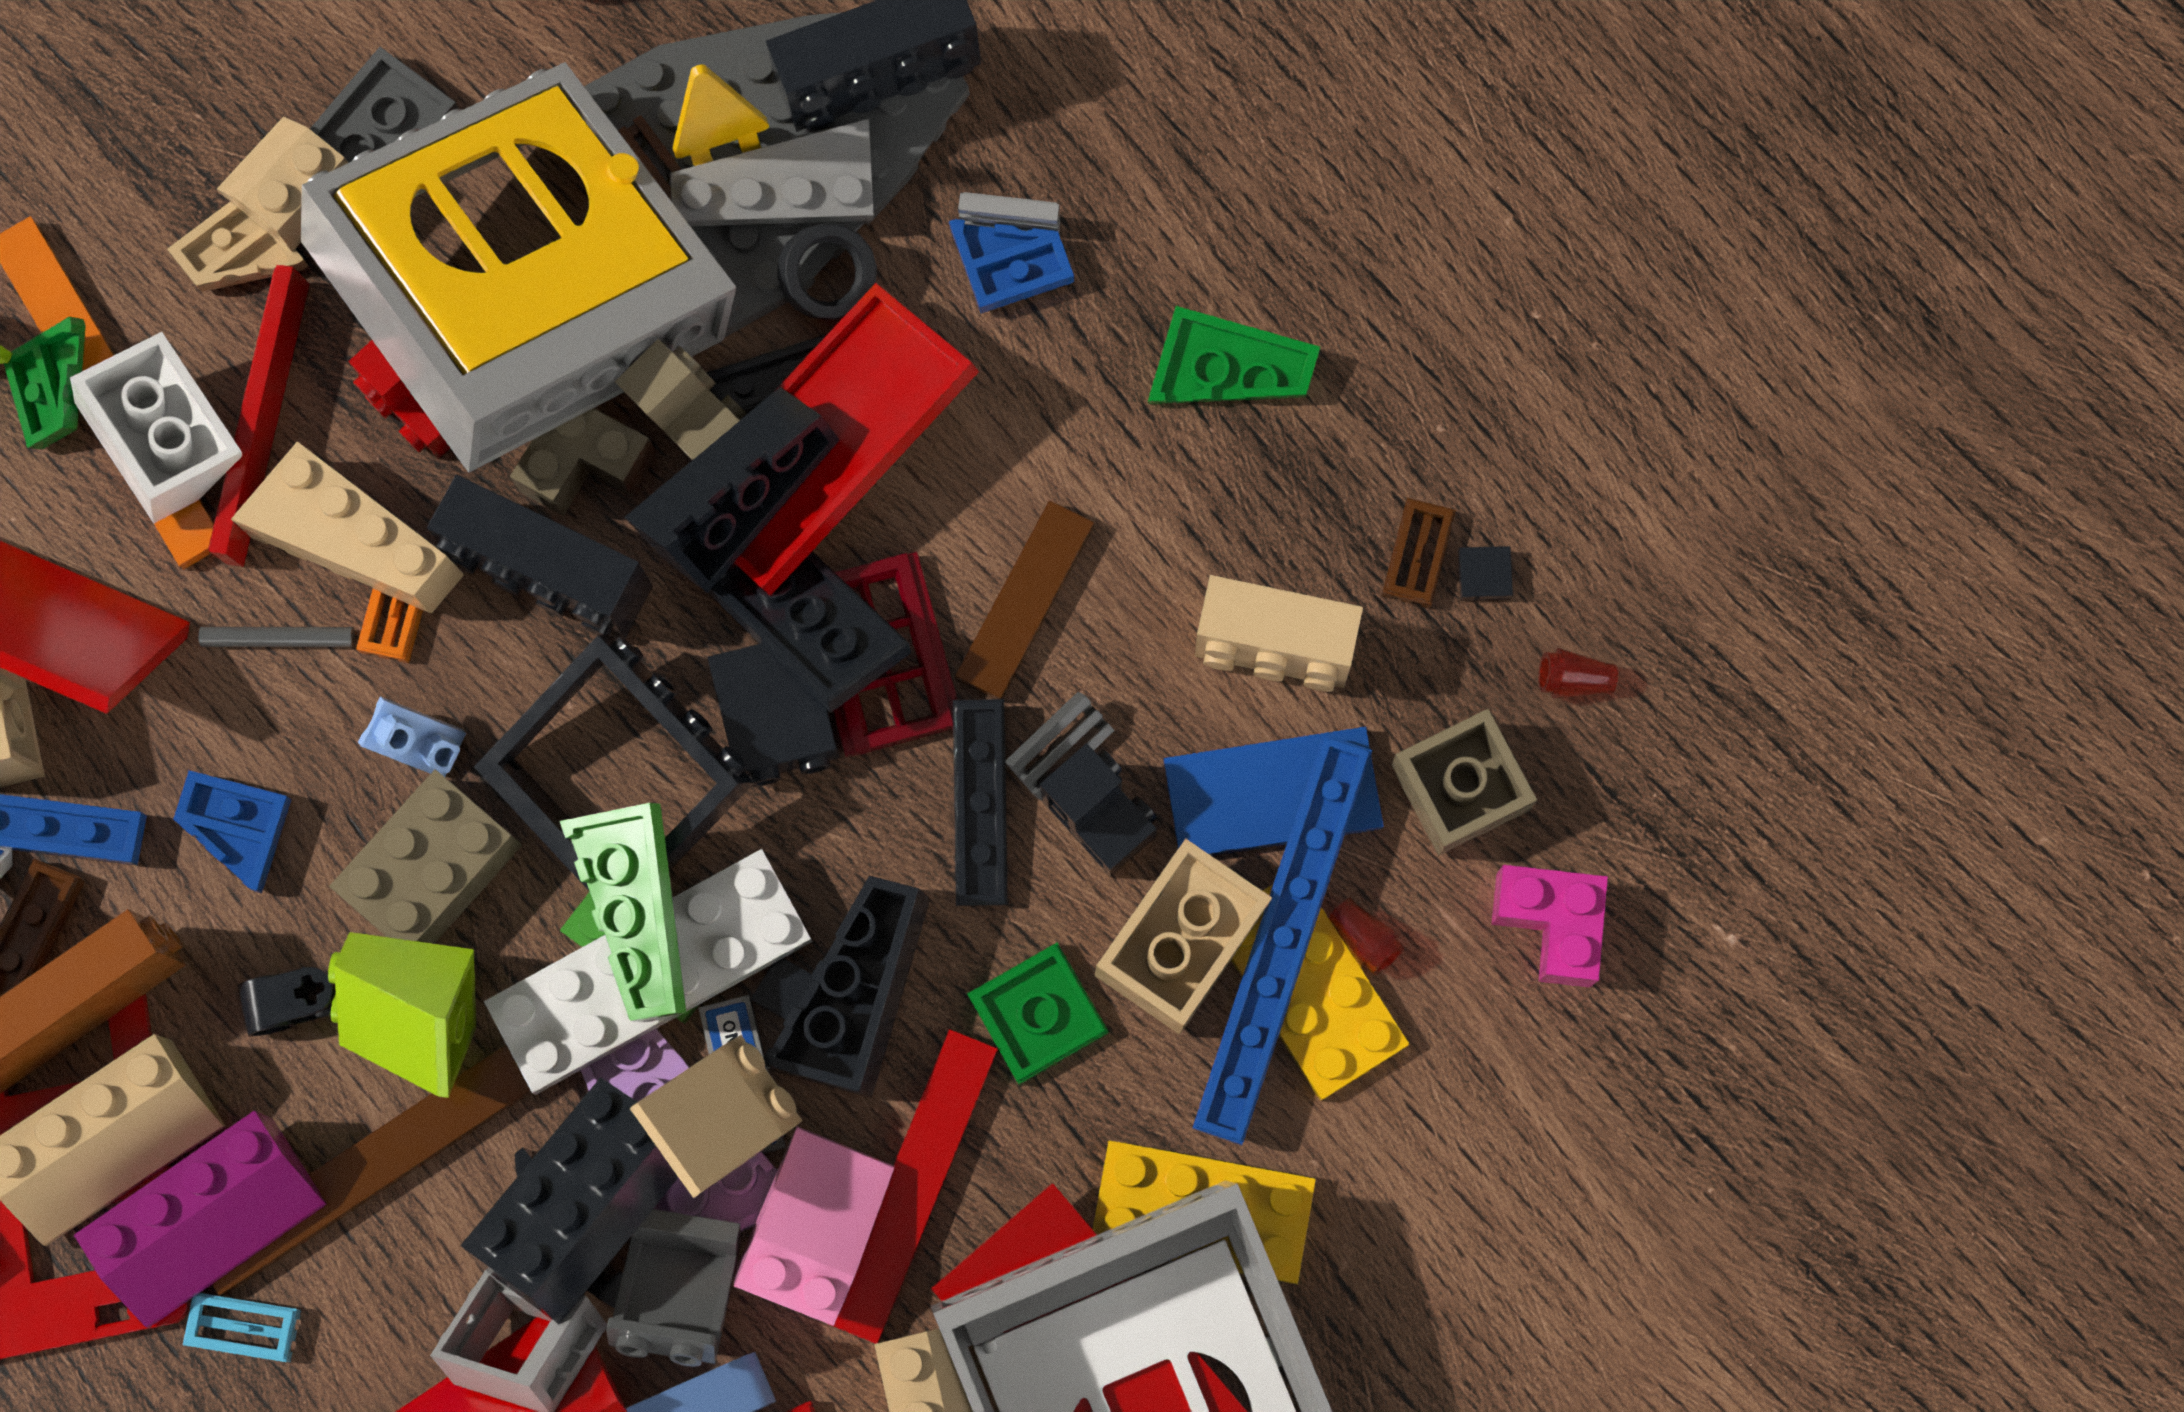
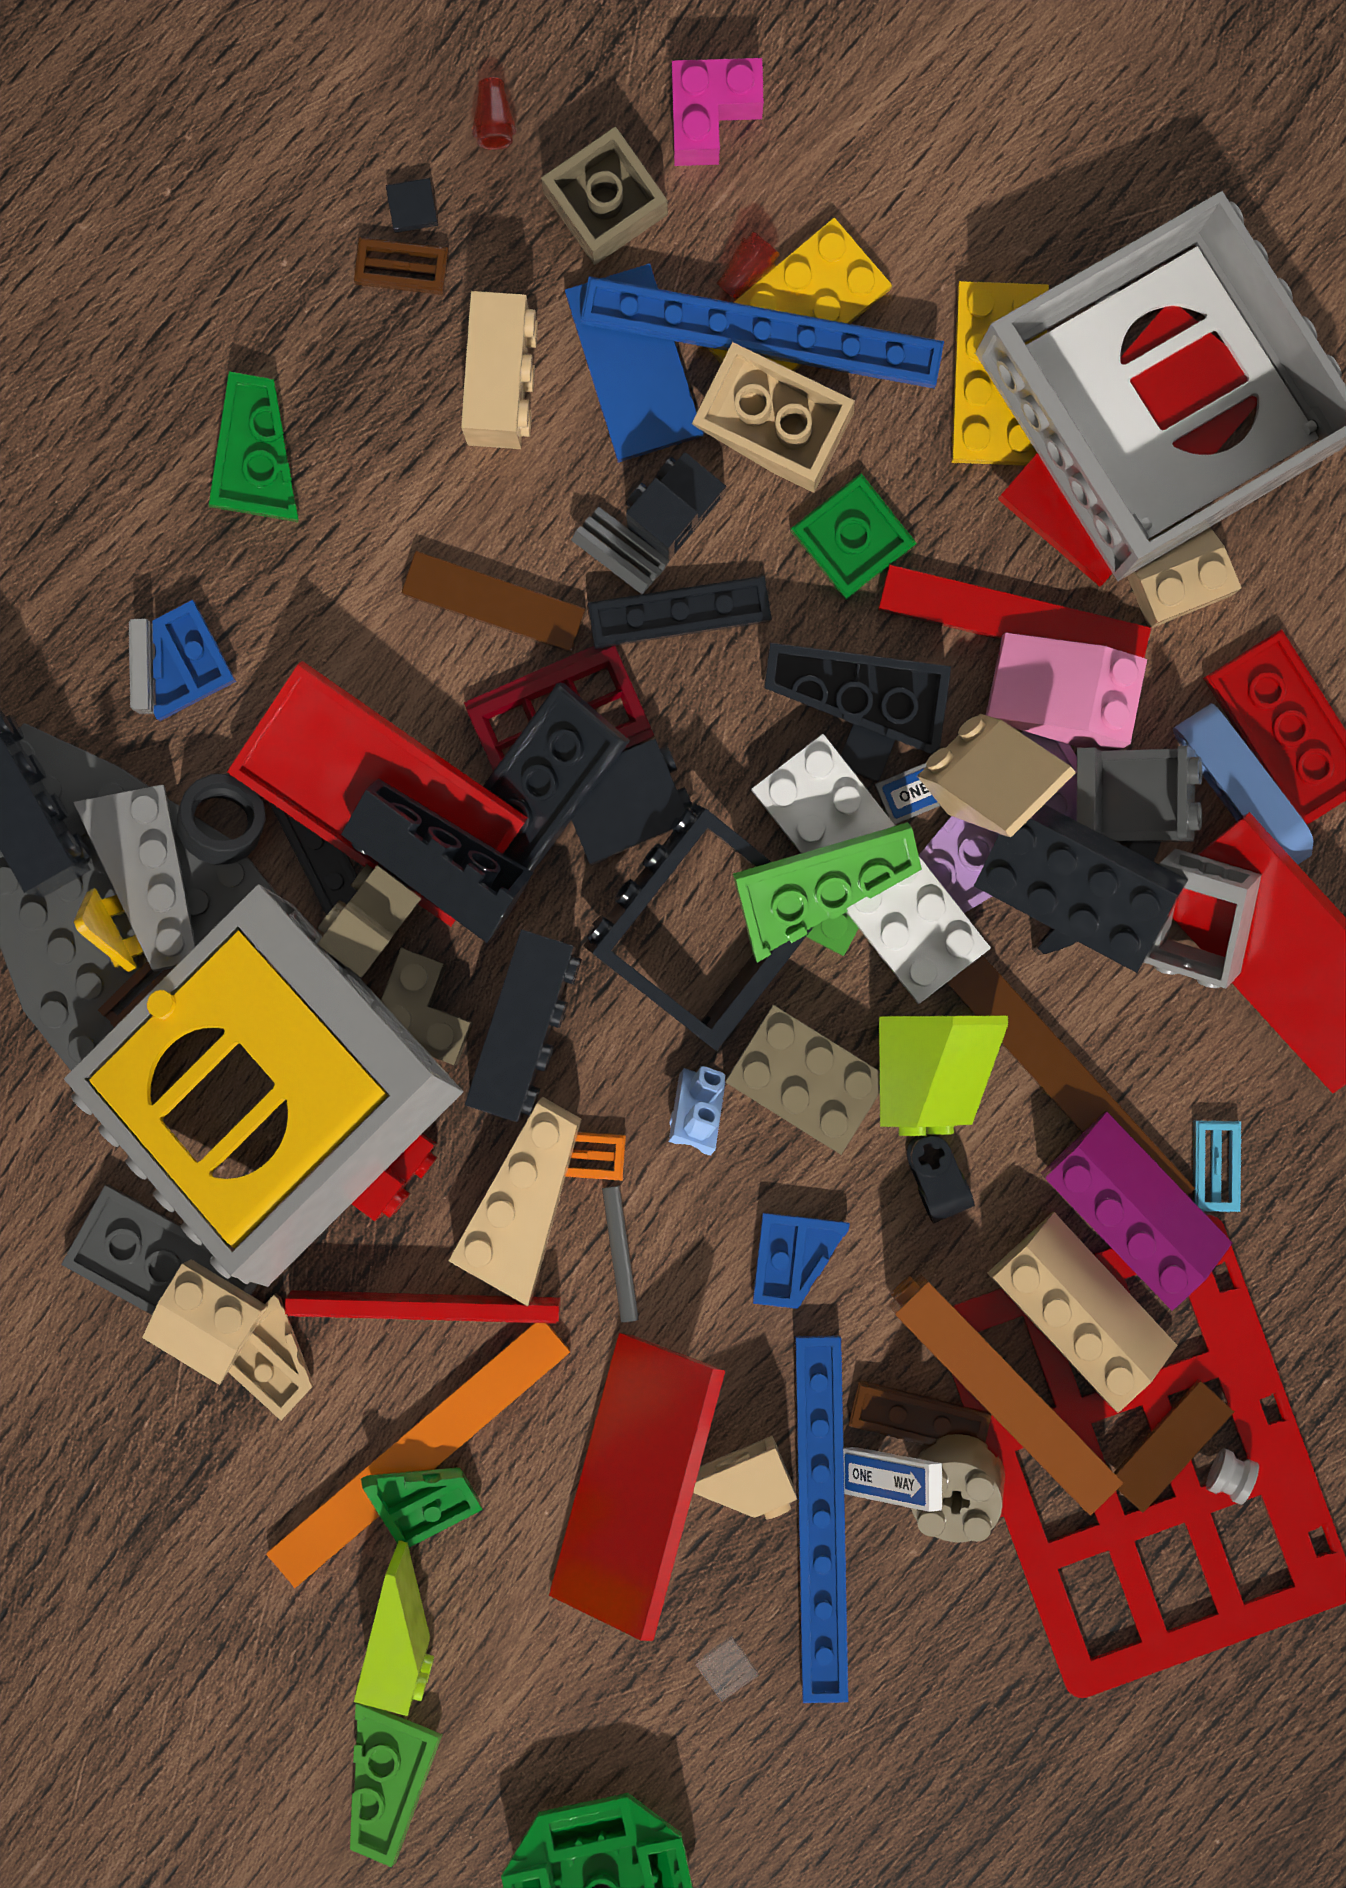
camera: 100 degrees left, 10 degrees up
(155, 425) = (451, 1390): white slope -> none

